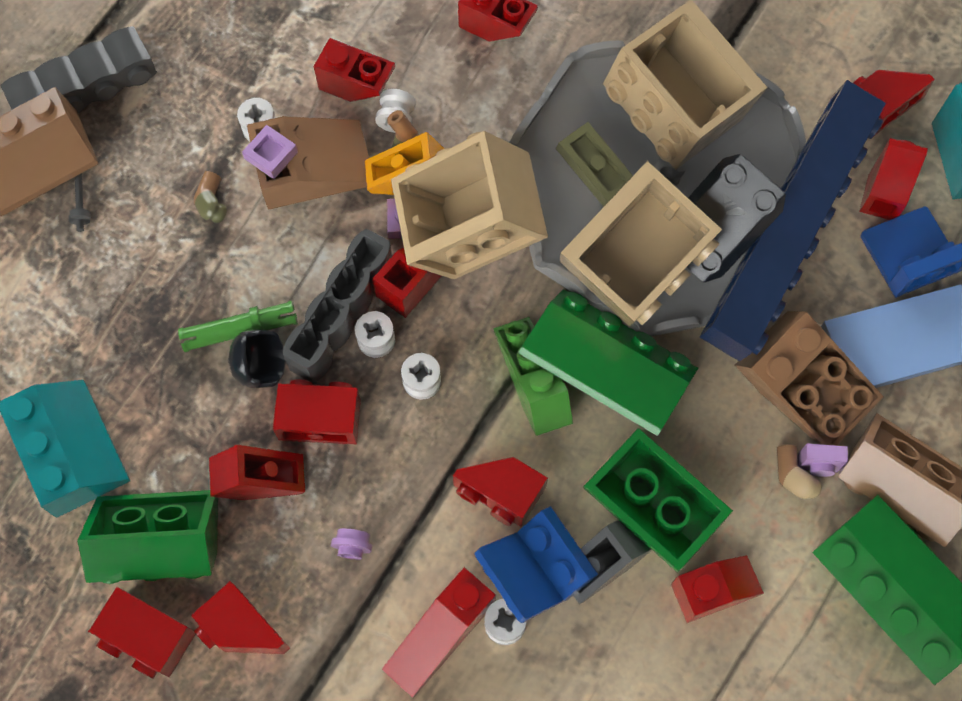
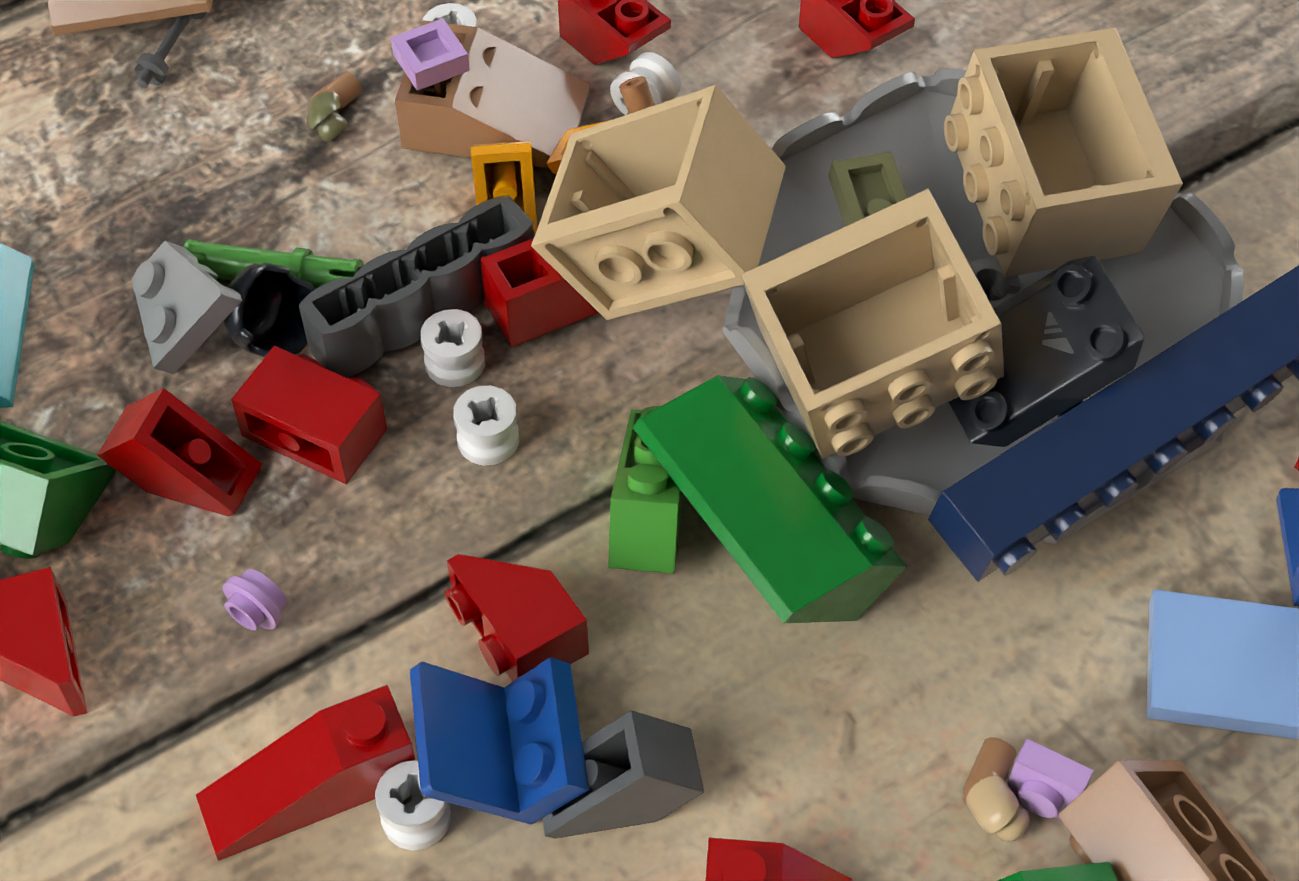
camera: 25 degrees right, 15 degrees down
(199, 376) = (179, 304): none -> light grey wing
(349, 211) = (505, 171): none -> light orange slope
(658, 500) = (742, 724): green slope -> none
(810, 379) = (1085, 656): medium nougat slope -> none

